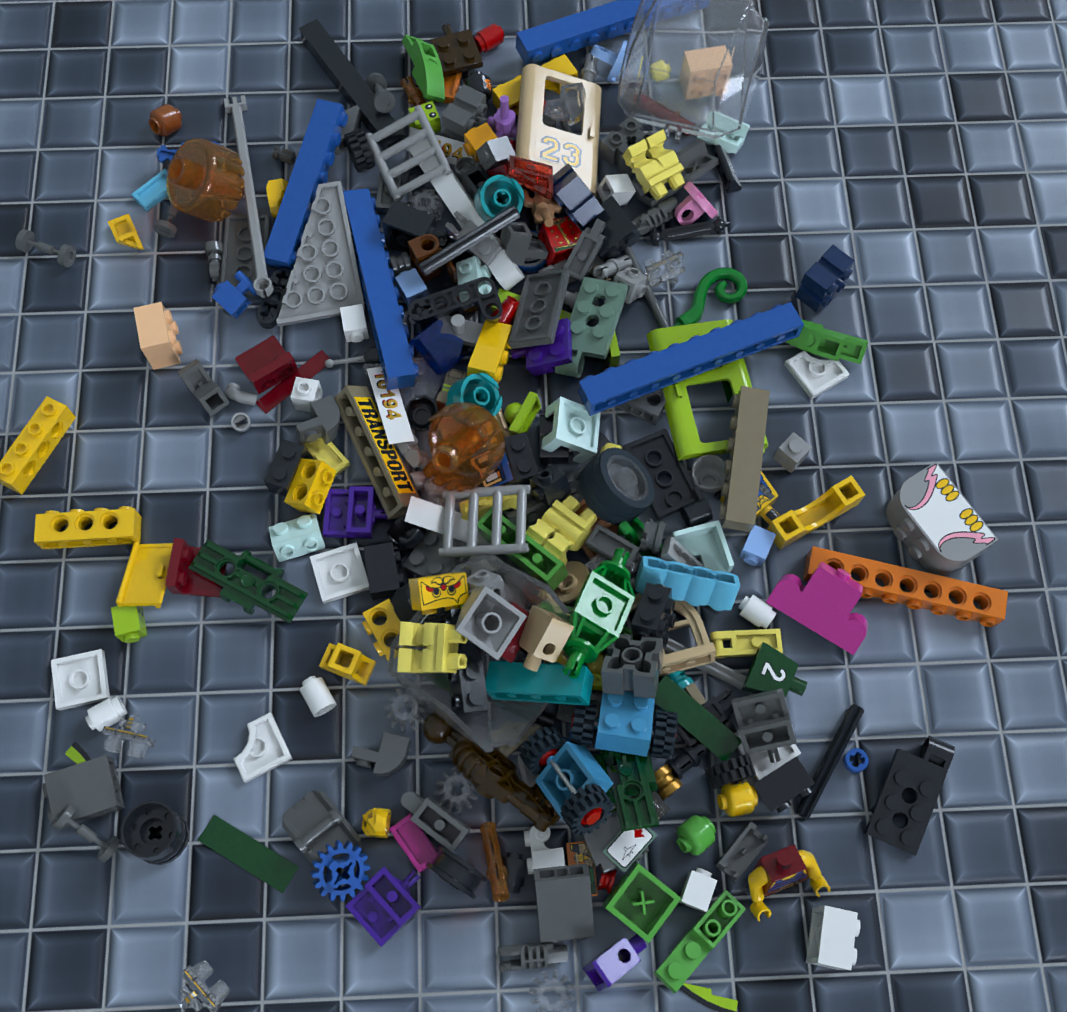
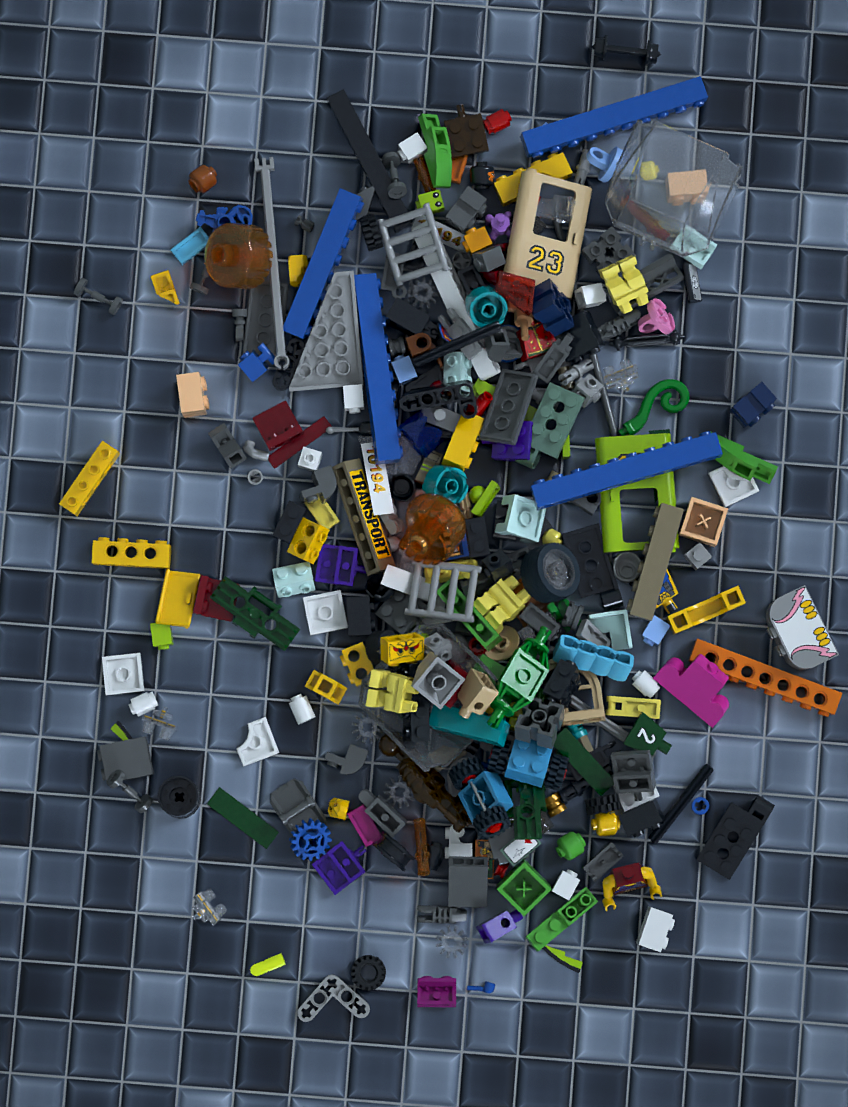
camera: 10 degrees right, 15 degrees up
(397, 68) = (412, 148): none -> white brick
(792, 410) = (703, 521): none -> light nougat brick

